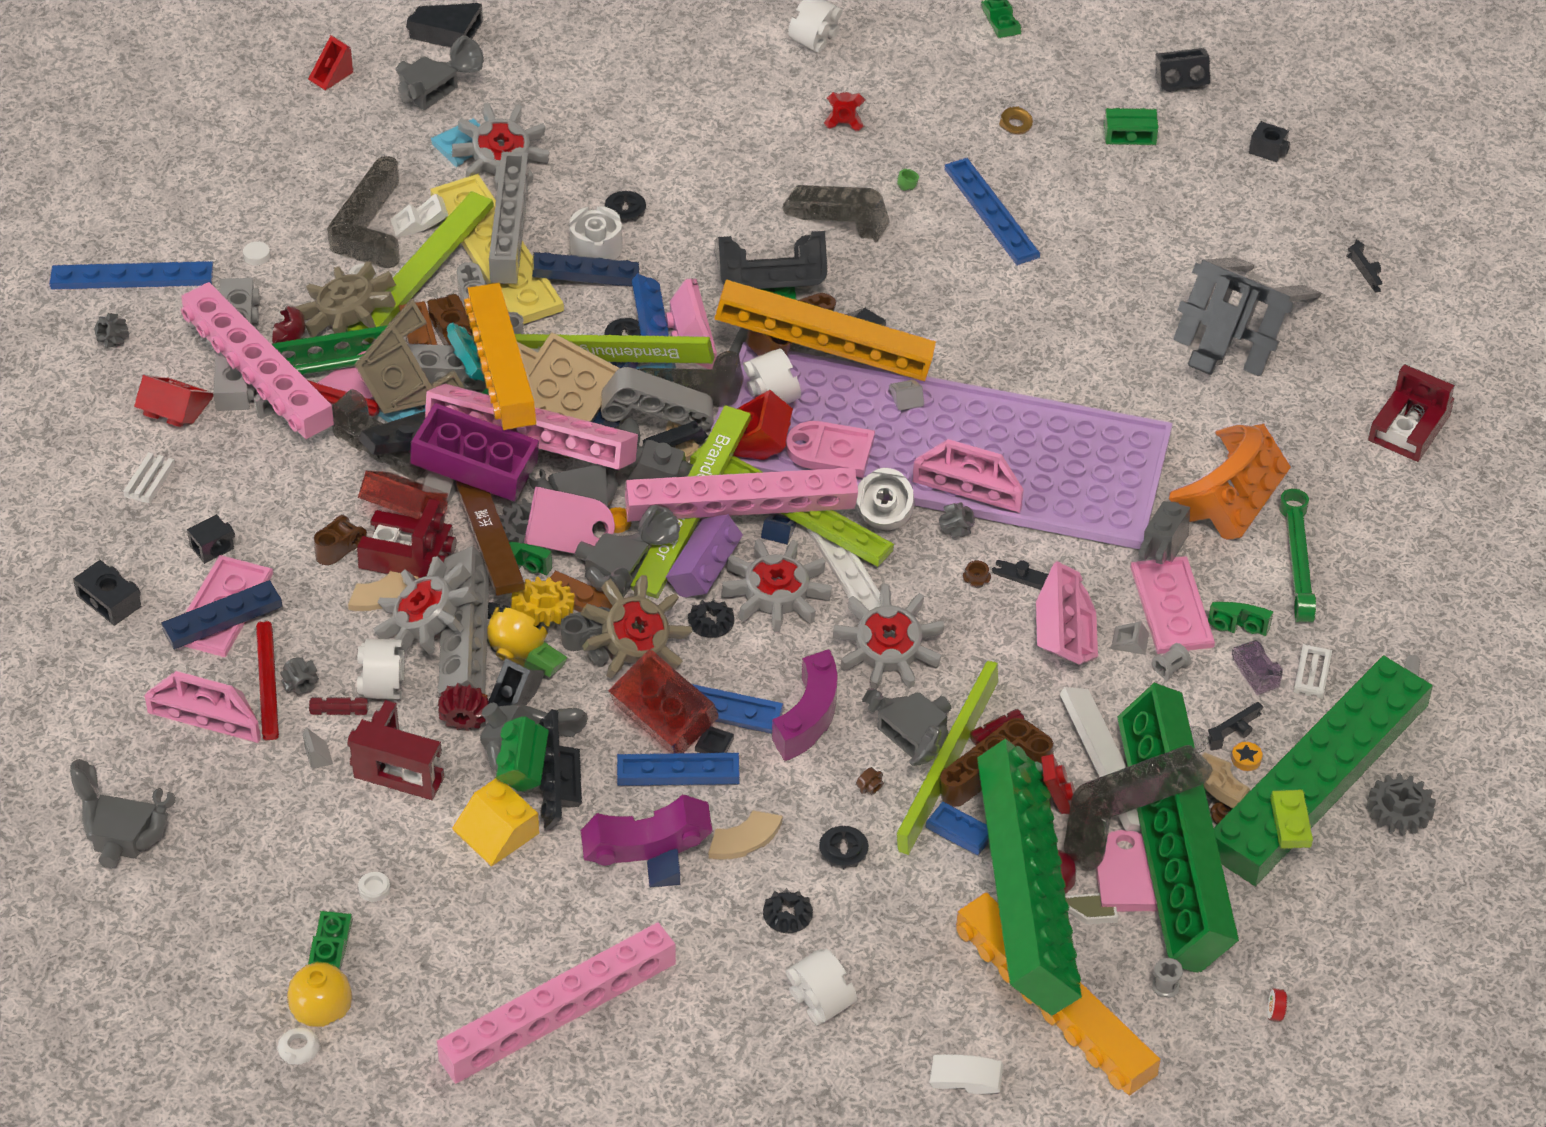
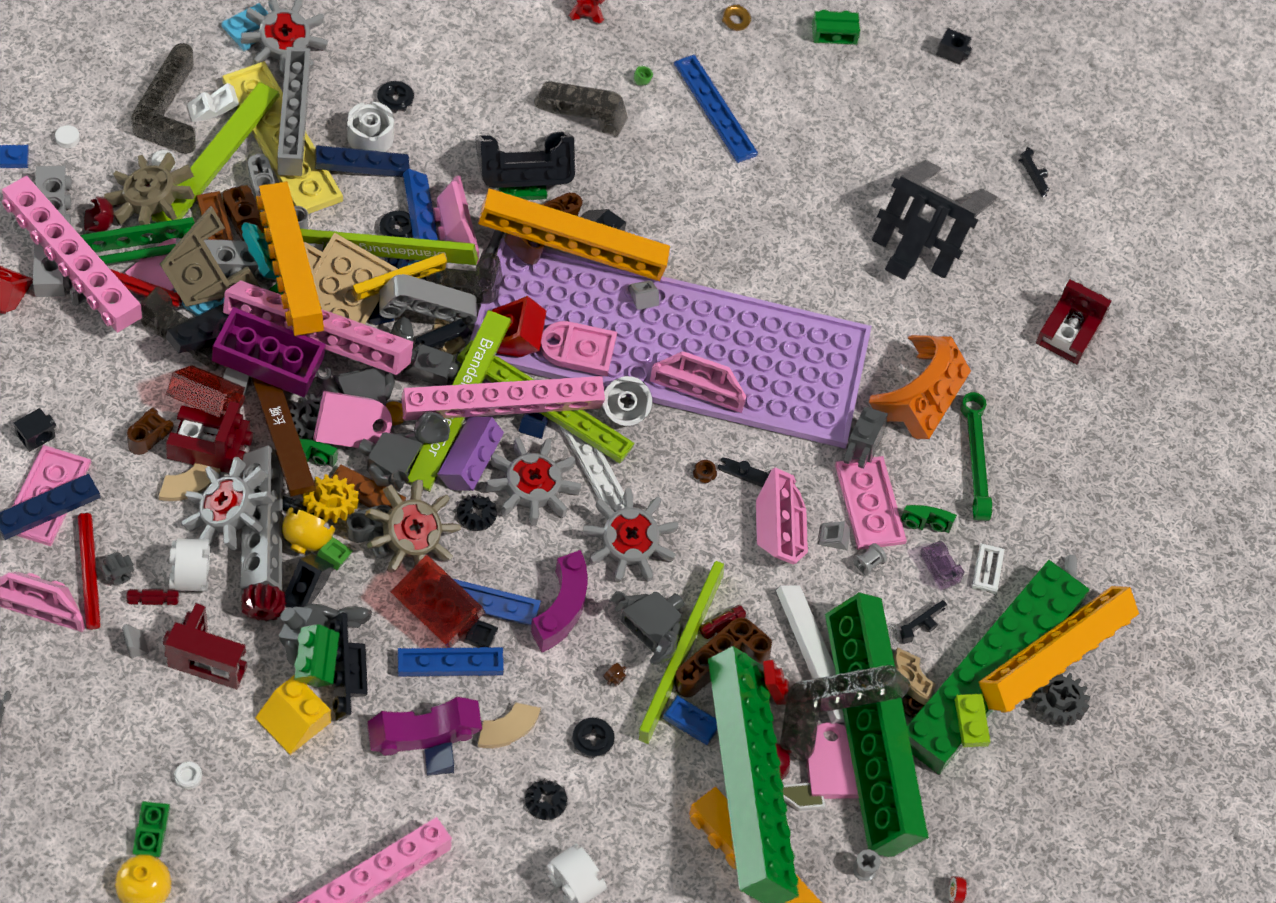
camera: 10 degrees left, 10 degrees up
(656, 365) = (419, 270): none -> yellow tile
(772, 373) = (528, 279): white brick -> none
(957, 520) = (688, 419): dark grey gear -> none
(1246, 756) = (932, 650): light orange tile -> none
(1395, 746) = (1058, 649): none -> light orange brick

